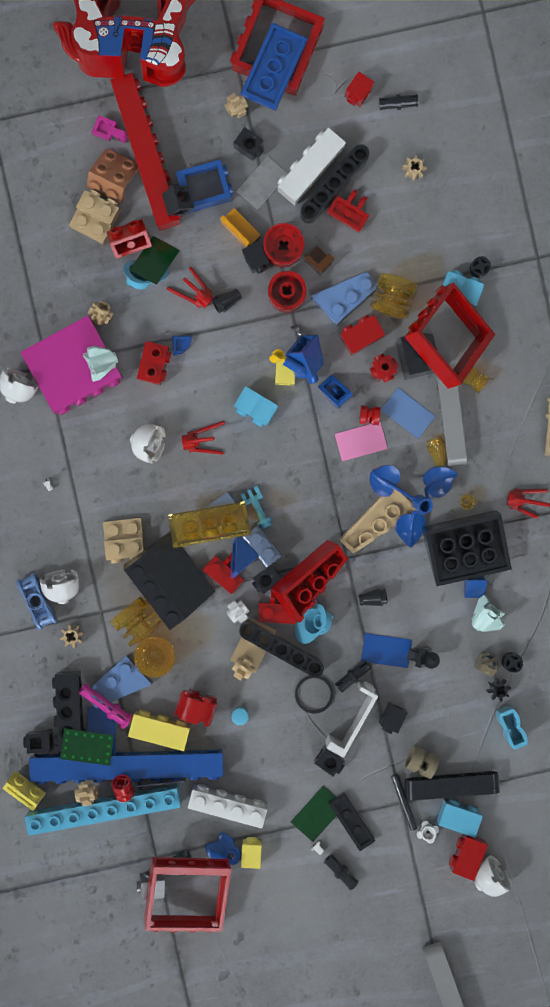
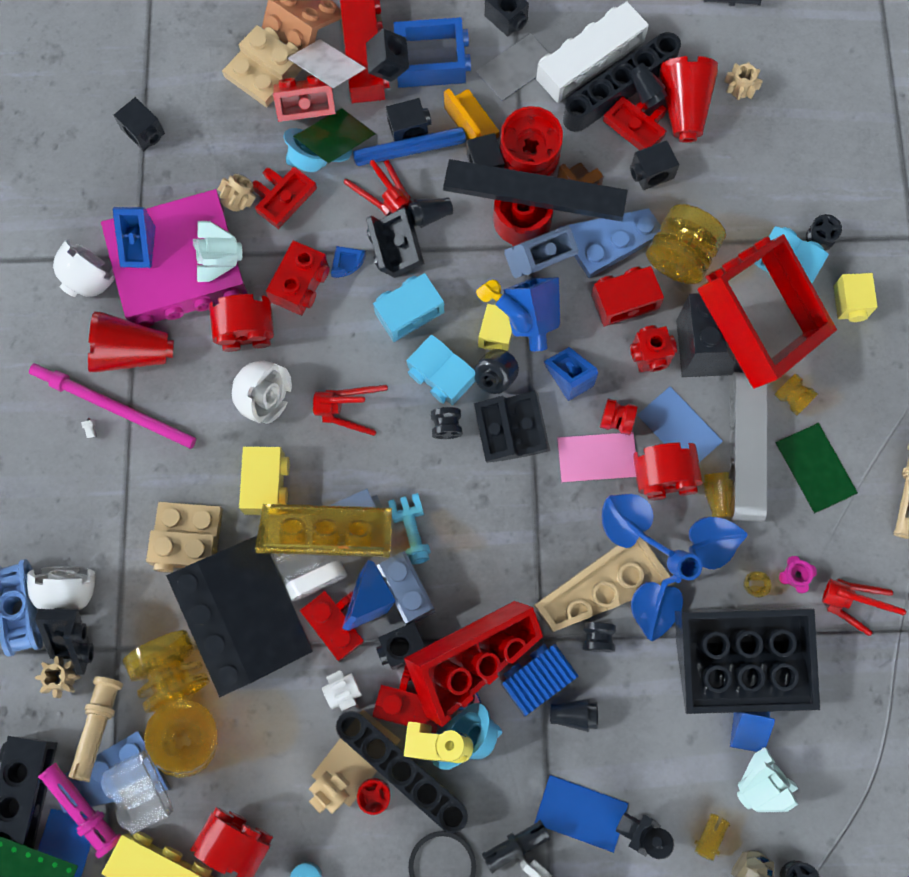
camera: 10 degrees right, 15 degrees down
(22, 459) = (61, 382): none -> dark pink bar
(25, 276) = (139, 124): none -> black brick
(46, 362) = (134, 236): none -> blue slope
(58, 429) = (125, 344): none -> red cone
(72, 613) = (65, 636): none -> black bracket
(101, 650) = (98, 712): none -> tan pin
(125, 401) = (241, 322): none -> red brick
(132, 308) = (285, 197): none -> red hinge
(135, 690) = (136, 792): none -> clear brick
(138, 212) = (326, 63): none -> flat silver sticker
(162, 497) = (262, 478): none -> light yellow brick
(200, 240) = (408, 119): none -> black brick
(204, 257) = (409, 146): none -> blue axle
(207, 551) = (316, 580): none -> white beam
(209, 327) = (395, 243): none -> black bracket
(227, 368) = (408, 306): none -> medium azure brick
(265, 440) = (446, 423): none -> black wheel
(268, 665) = (376, 800): none -> red wheel
(290, 401) = (496, 371): none -> black head
(292, 280) = (535, 190): none -> black tile
(293, 633) = (443, 747): none -> light yellow leg
(303, 318) = (541, 251): none -> sand blue brick
(305, 433) = (511, 427): none -> black slope
(349, 582) = (538, 679): none -> blue brick
(352, 188) = (648, 86): none -> black cone
(365, 241) = (654, 165): none -> black brick
(380, 189) = (689, 94): none -> red cone
(380, 551) = (599, 637): none -> black wheel
(403, 445) = (667, 470): none -> red brick
(460, 651) = (711, 839): none -> clear yellow pin
(494, 422) = (816, 468): none -> dark green sticker
(495, 491) = (806, 570): none -> dark pink plate
(504, 308) = (855, 296): none -> light yellow brick

